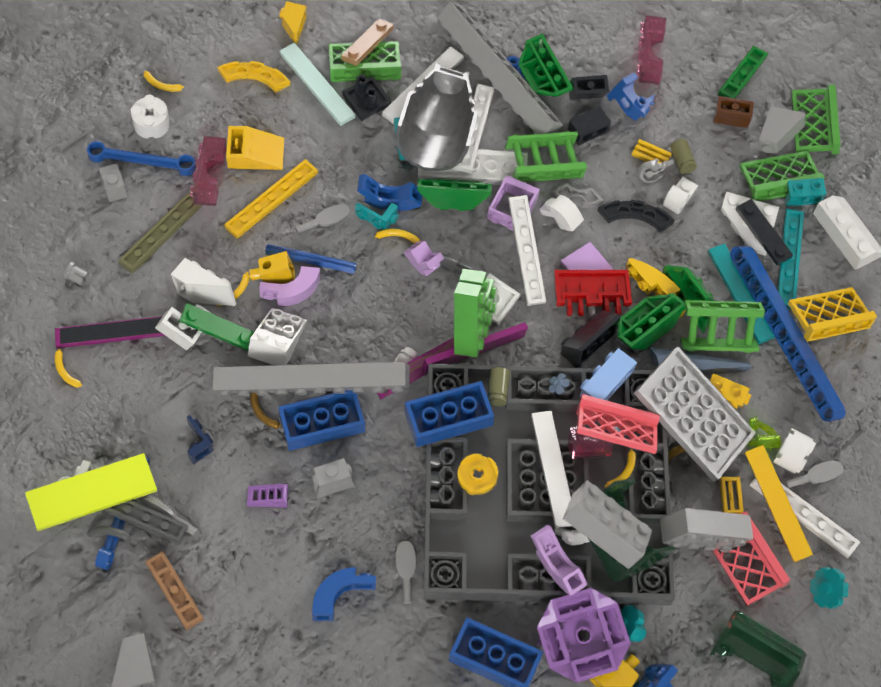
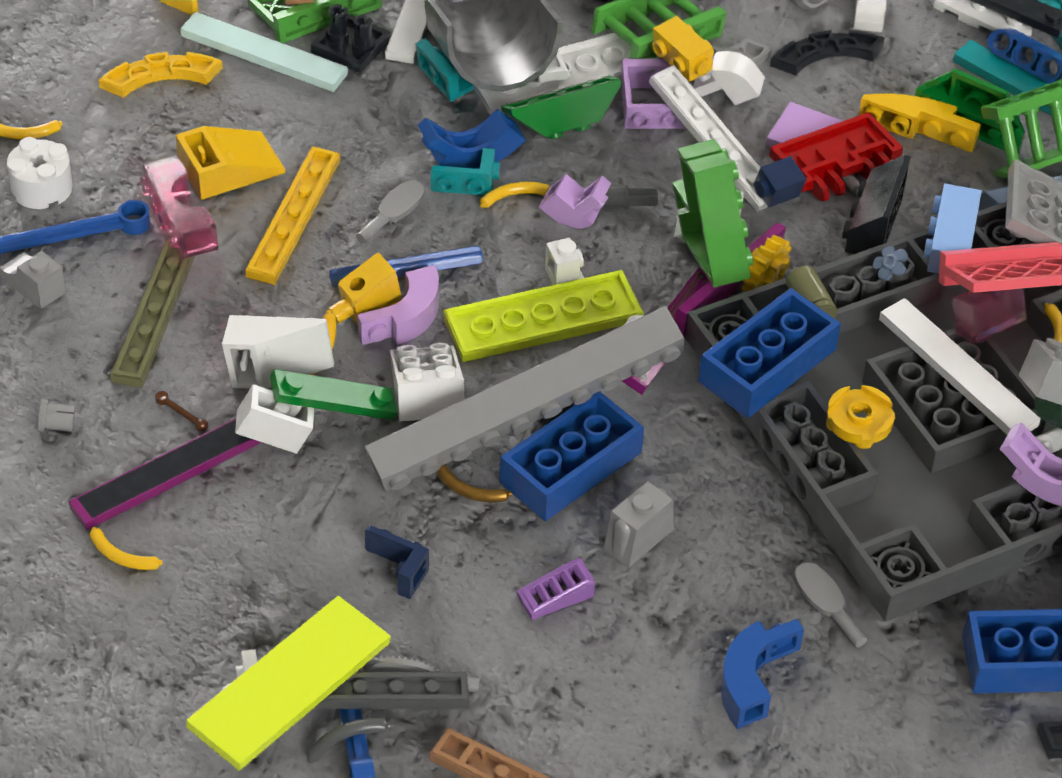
camera: 25 degrees left, 15 degrees down
(138, 285) = (162, 399): none -> reddish brown hinge
(365, 322) = (541, 315): none -> neon yellow tile
(394, 296) = (563, 261): none -> white brick
(499, 350) = (769, 263): none -> yellow gear
(539, 190) = (683, 47): none -> yellow brick
(543, 295) = (779, 181): none -> dark blue brick
(649, 320) = (945, 153): green wedge -> none

